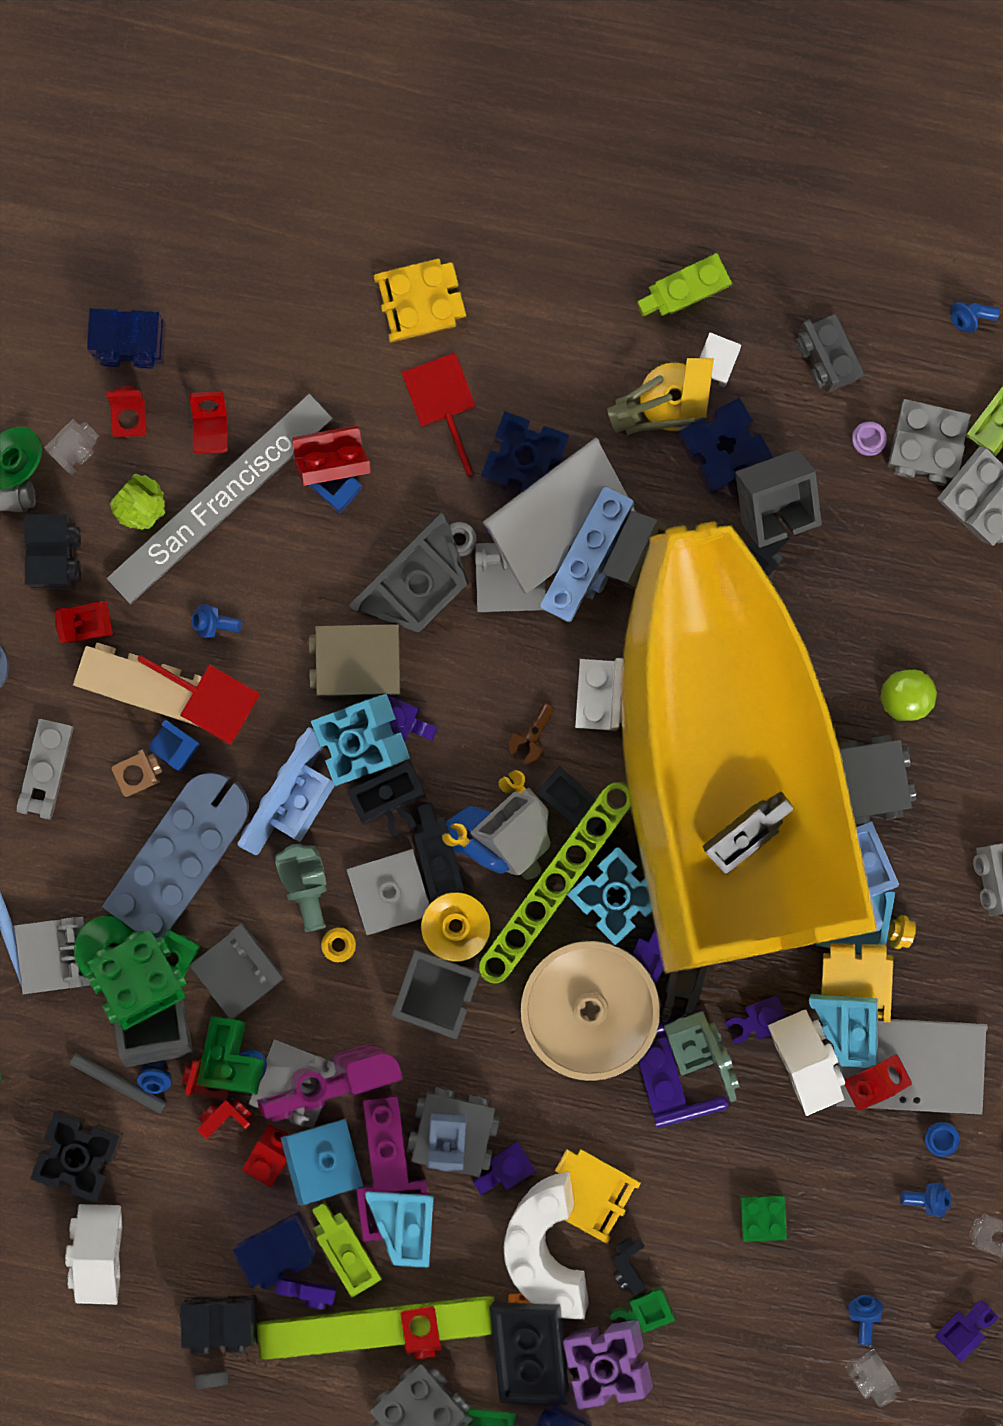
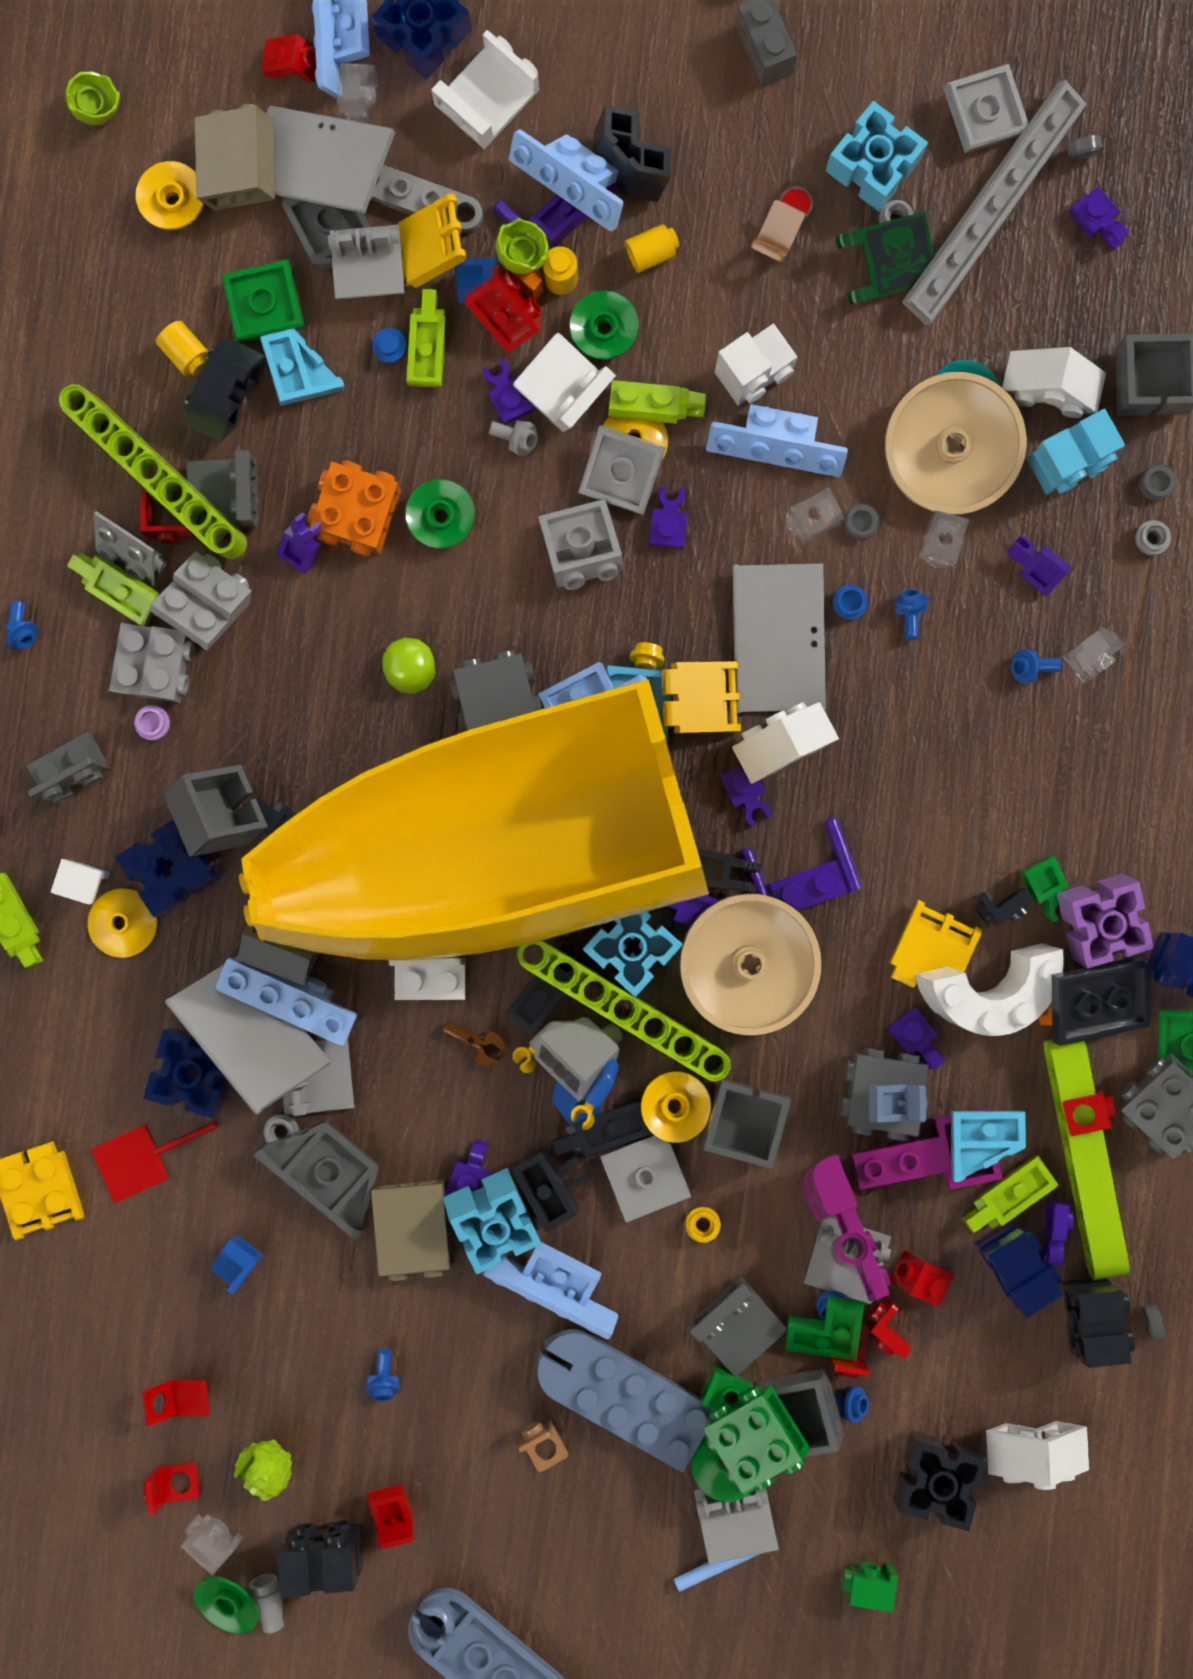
camera: 85 degrees left, 0 degrees up
(45, 767) = (545, 1541): light grey plate -> none
(118, 1083) = (860, 1440): dark grey bar -> none
(126, 337) = (91, 1497): clear blue brick -> none
(132, 682) = (453, 1445): tan brick -> none
(174, 746) = (513, 1409): blue panel -> none
(217, 500) = (256, 1382): light grey tile -> none
(217, 702) = (464, 1373): red piece -> none
(305, 880) = (639, 1264): sand green piece -> none
(321, 1162) = (925, 1226): dark azure plate -> none
(330, 455) = (201, 1273): red bracket -> none
(625, 414) = (139, 970): olive plant -> none
(696, 387) = (108, 901): yellow sticker -> none
(699, 1045) = (777, 852): sand green bracket -> none
(748, 832) = (558, 817): hinge -> none
(763, 1218) = (943, 774): green piece -> none
(850, 1026) = (746, 701): medium azure wing -> none
(875, 1084) = (801, 672): red bracket -> none

